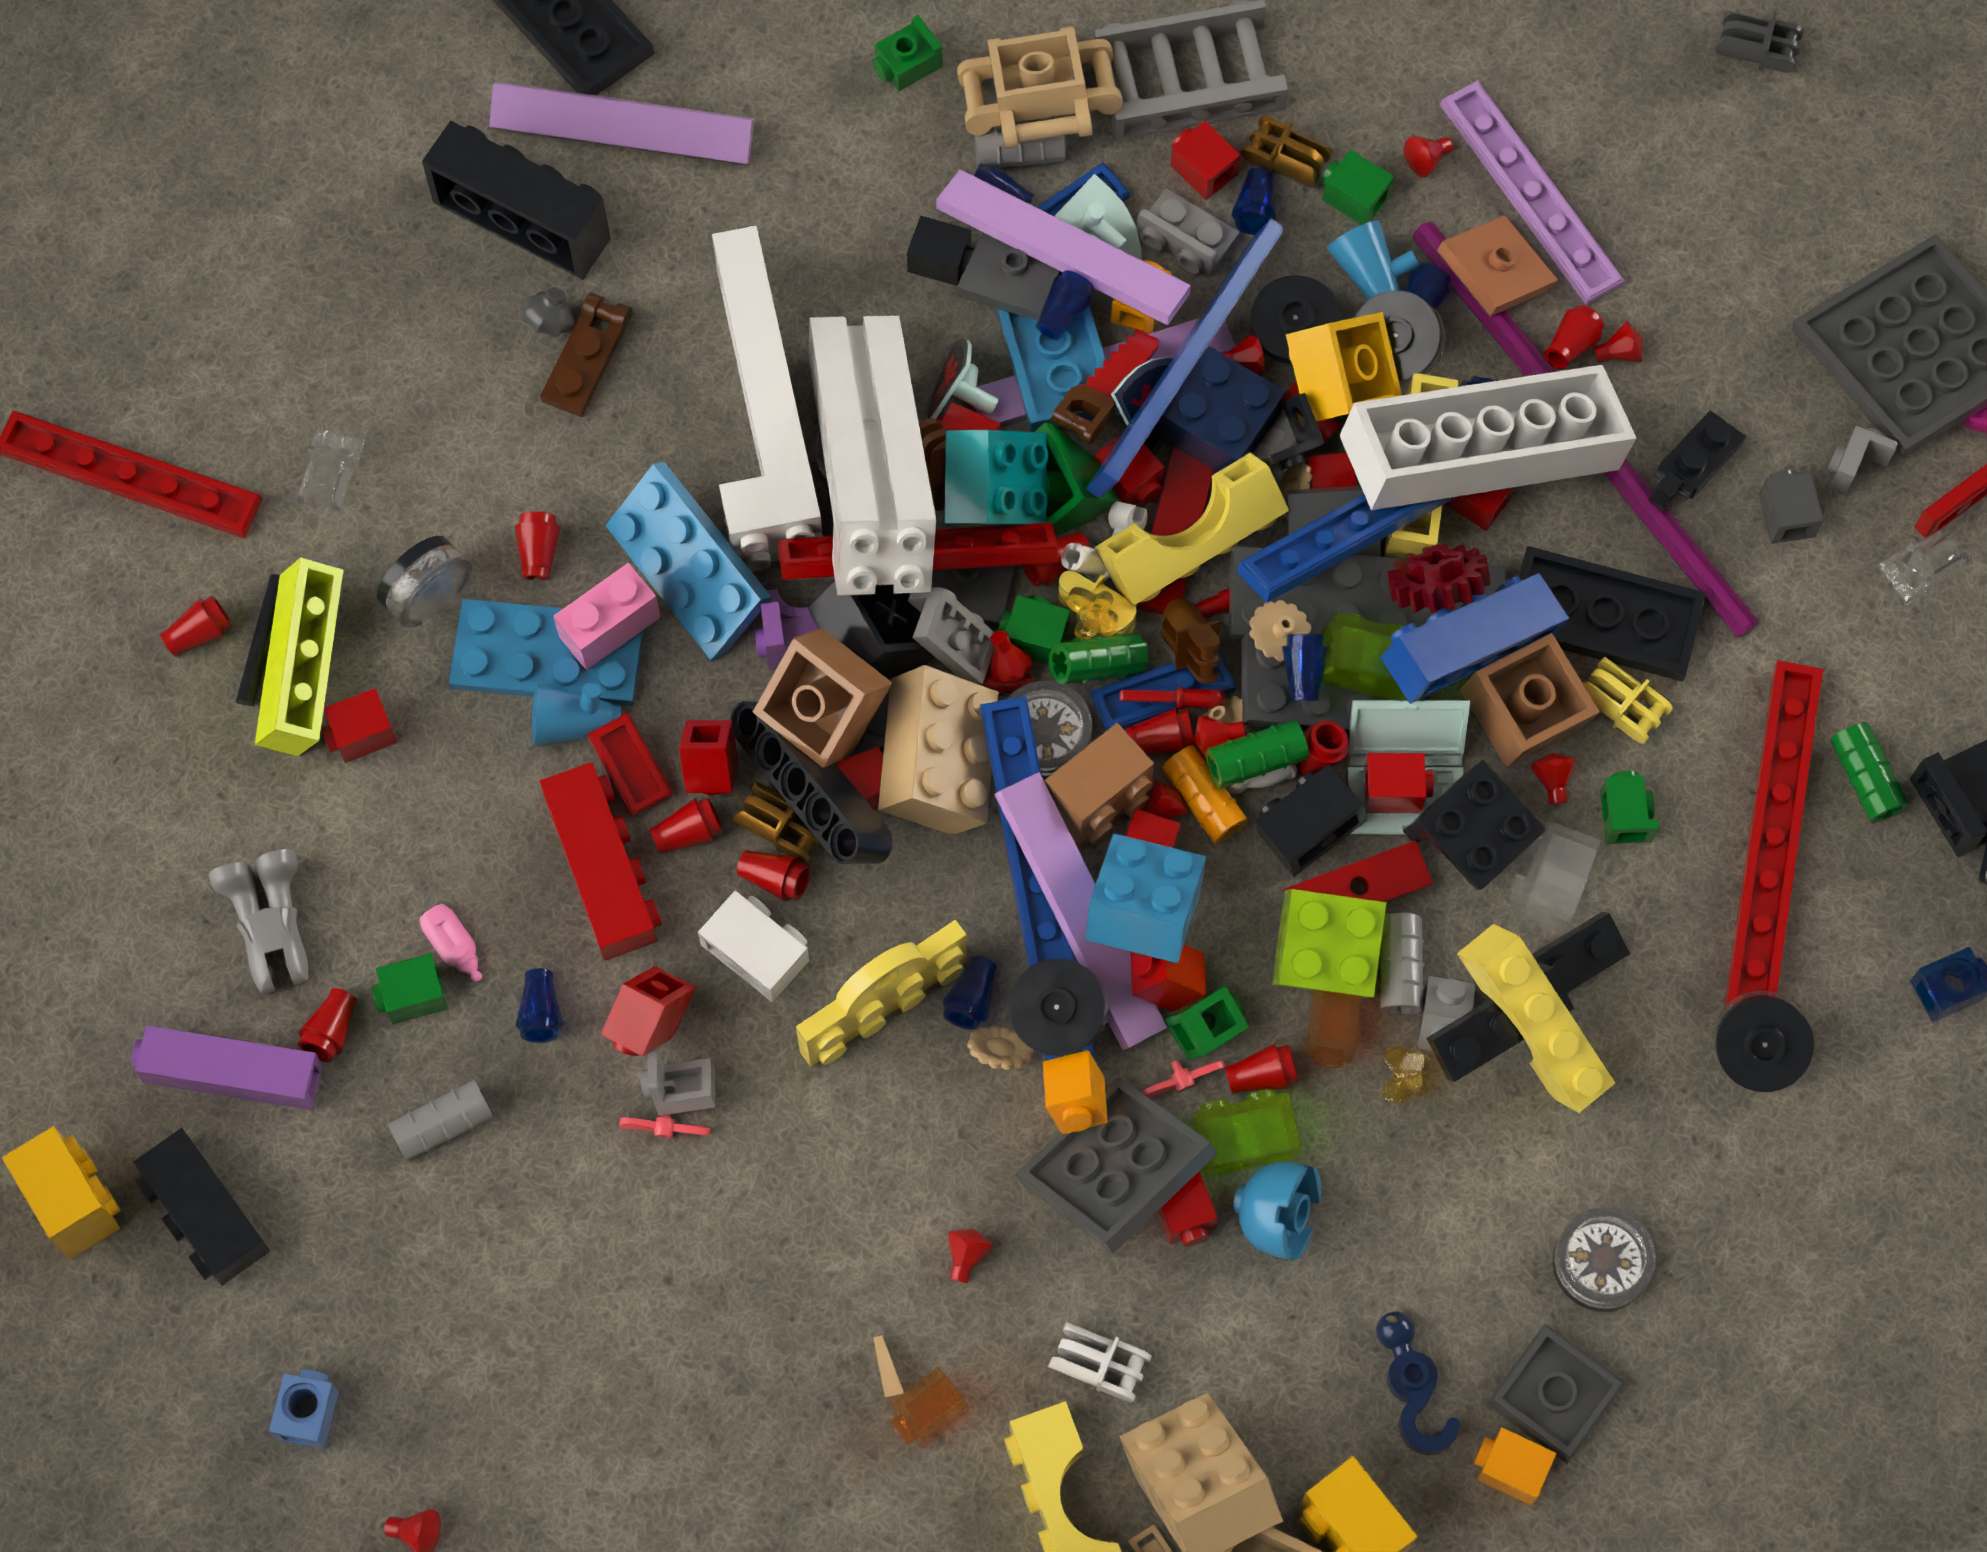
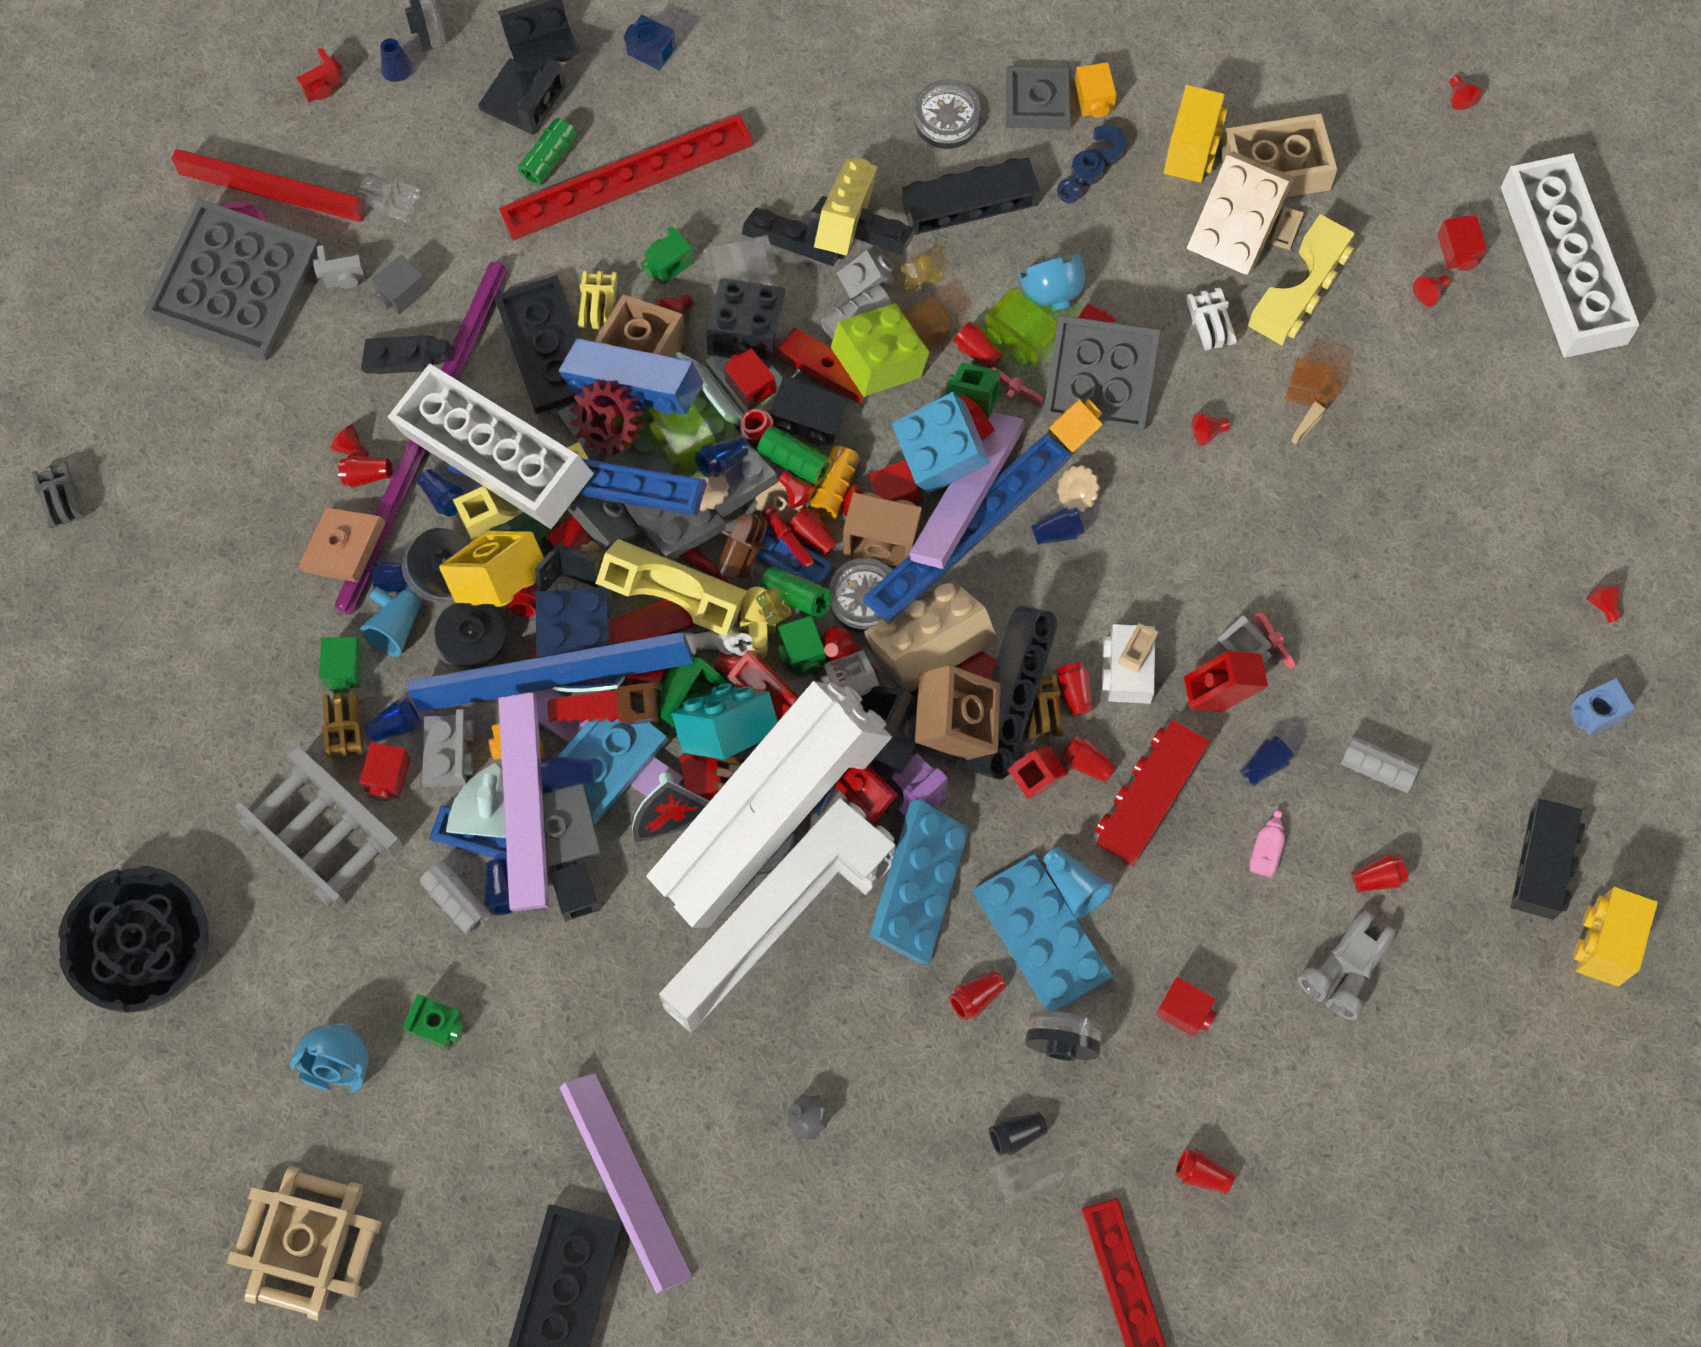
camera: 125 degrees left, 0 degrees up
(227, 1067) = (1457, 912): medium lavender brick -> none
(259, 646) = (1176, 1125): black bar -> none
(299, 657) = (1175, 1078): neon yellow brick -> none
(376, 486) = (1016, 1133): none -> black cone
(409, 989) = (1321, 841): green brick -> none
(517, 199) = (744, 1194): black brick -> none
(586, 355) = (817, 1071): reddish brown plate -> none
(607, 616) = (1000, 894): bright pink brick -> none
(629, 764) = (1077, 822): red tile -> none
(758, 950) = (1138, 647): none -> tan piece
(879, 988) = (1107, 557): light yellow plate -> none
(1039, 80) = (403, 908): tan brick -> none
(1058, 1007) = (1036, 460): black piece -> none
(1248, 354) = (516, 649): red rock -> none
(1424, 153) = (284, 642): red rock -> none
(1468, 1204) = (970, 195): none -> black brick
(1532, 193) = (266, 565): lavender tile -> none
(1763, 1041) = (760, 107): black piece -> none

